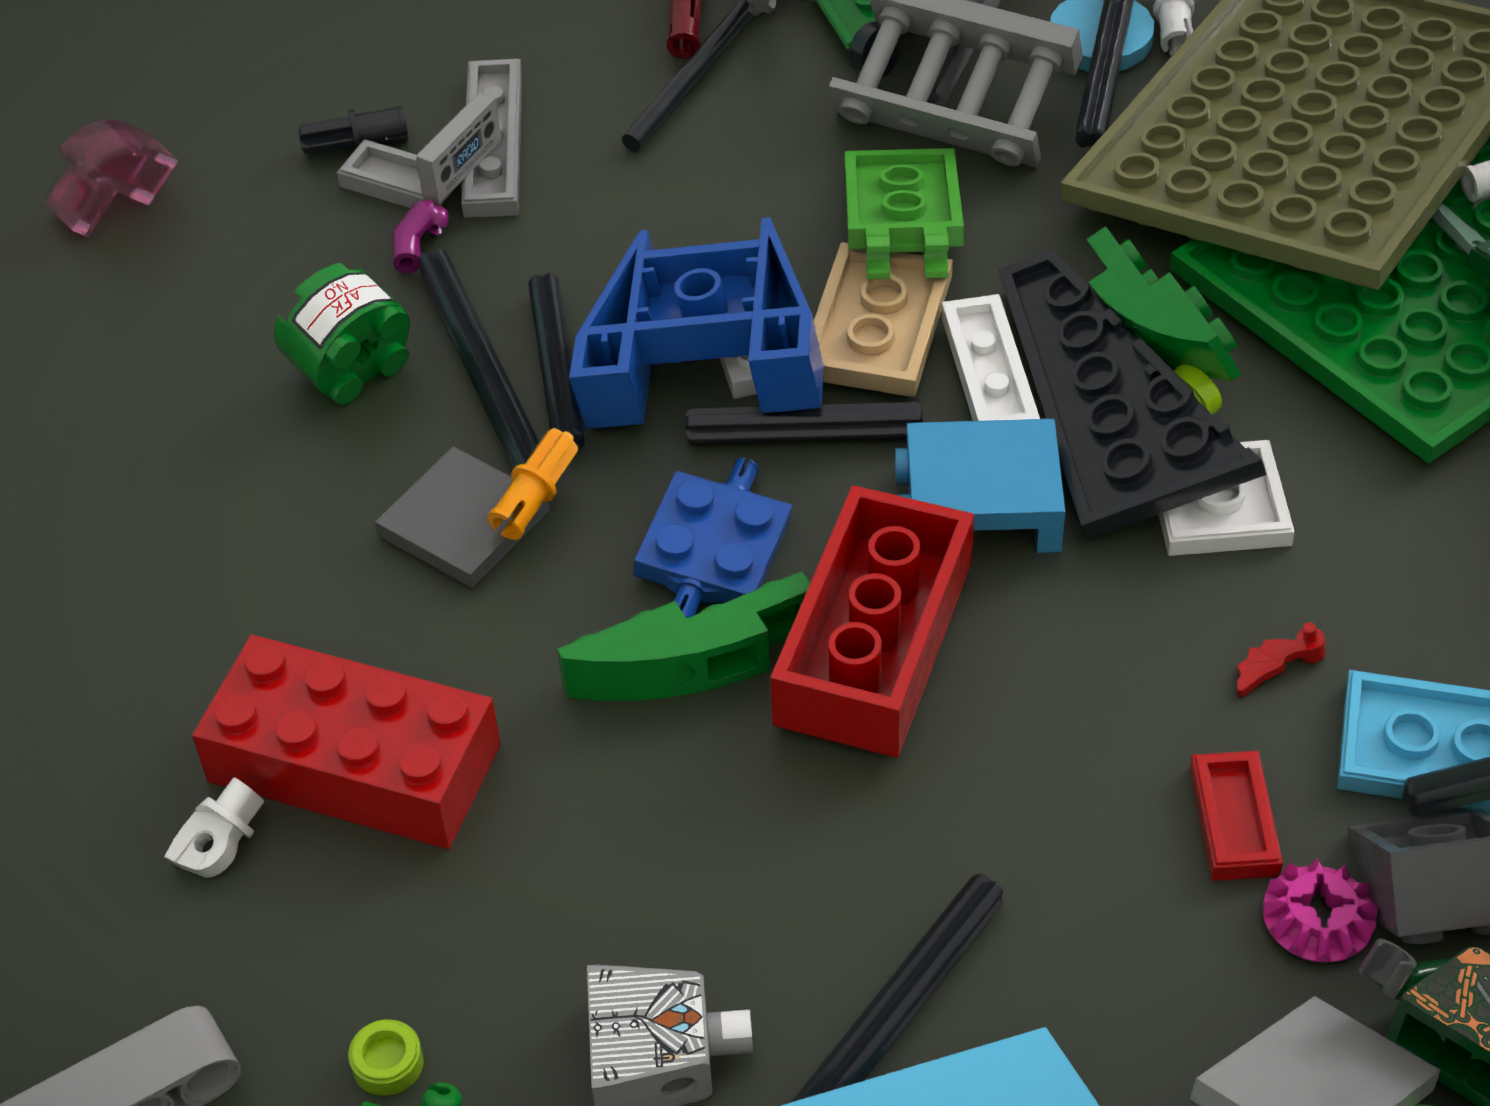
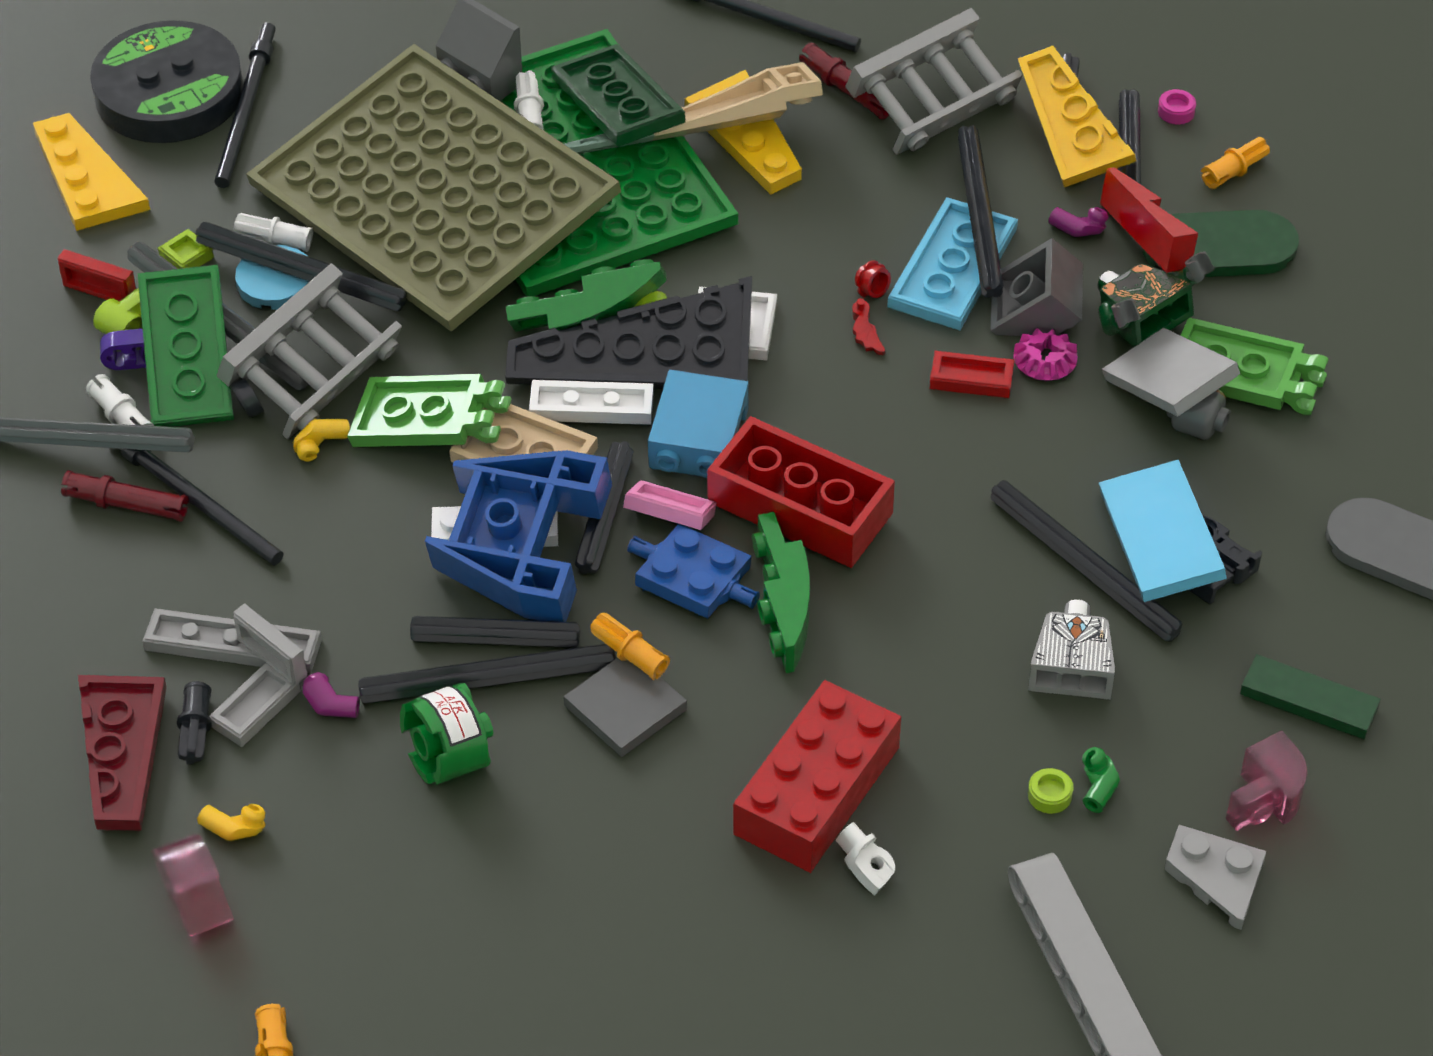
camera: 80 degrees left, 0 degrees up
(208, 197) = (232, 828): none -> yellow arm
(303, 84) = (121, 743): none -> dark red wing
(820, 484) = (670, 504): none -> bright pink tile
(835, 122) = (315, 432): none -> yellow arm
(1371, 652) = (872, 279): none -> red plate

